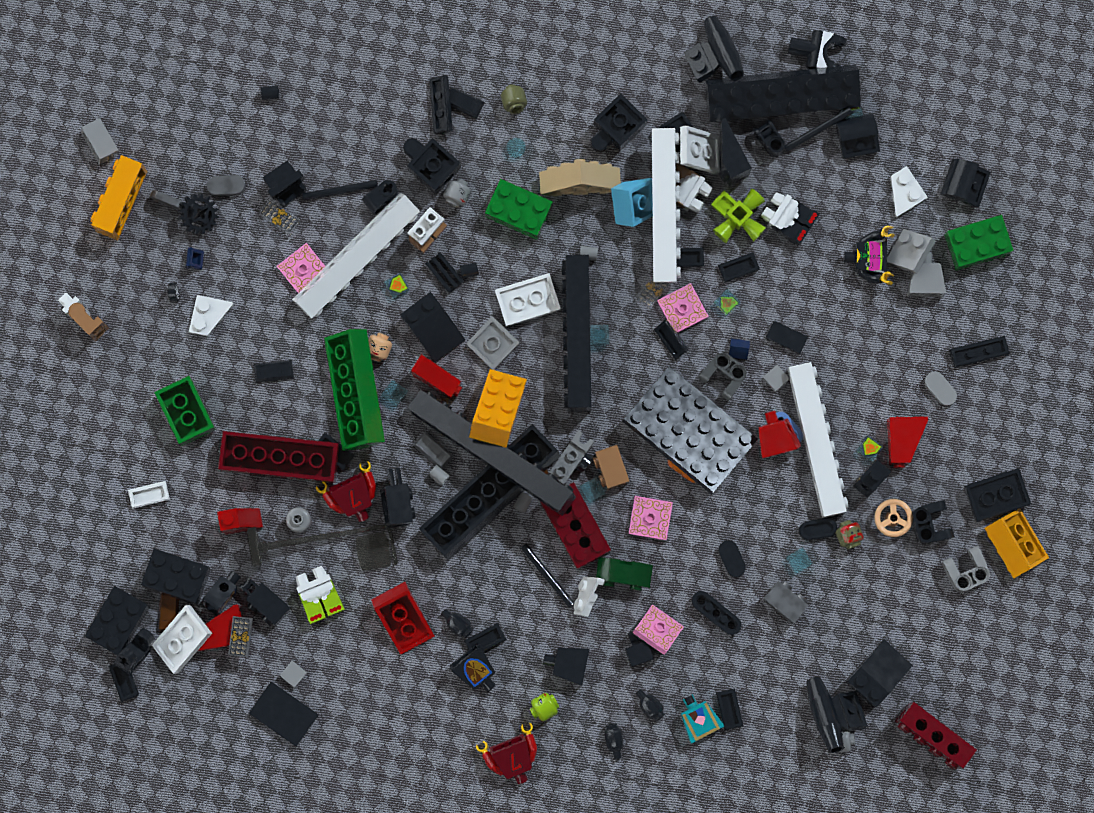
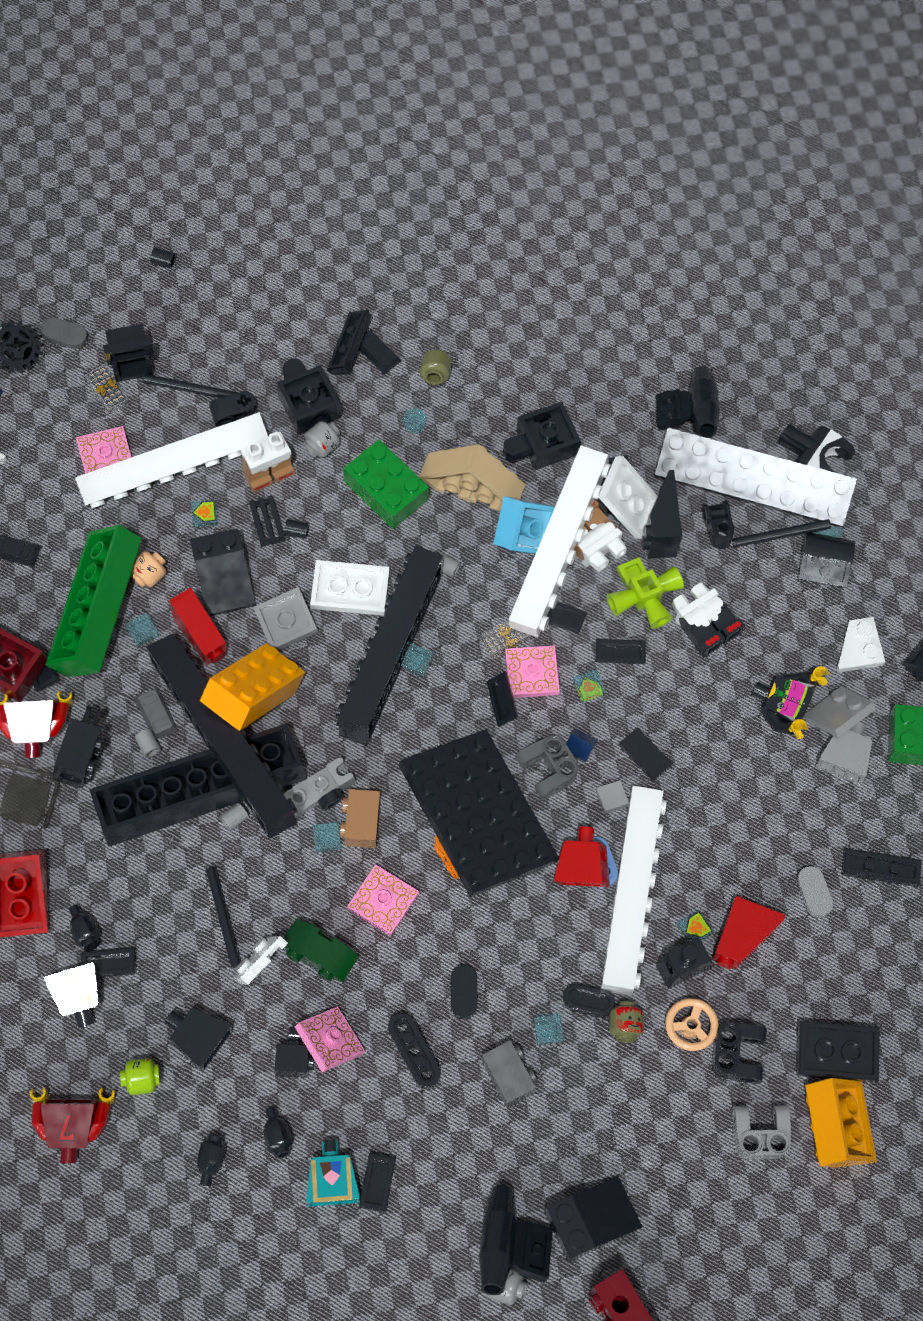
camera: 20 degrees right, 15 degrees down
(589, 530) = (298, 880): dark red brick -> none

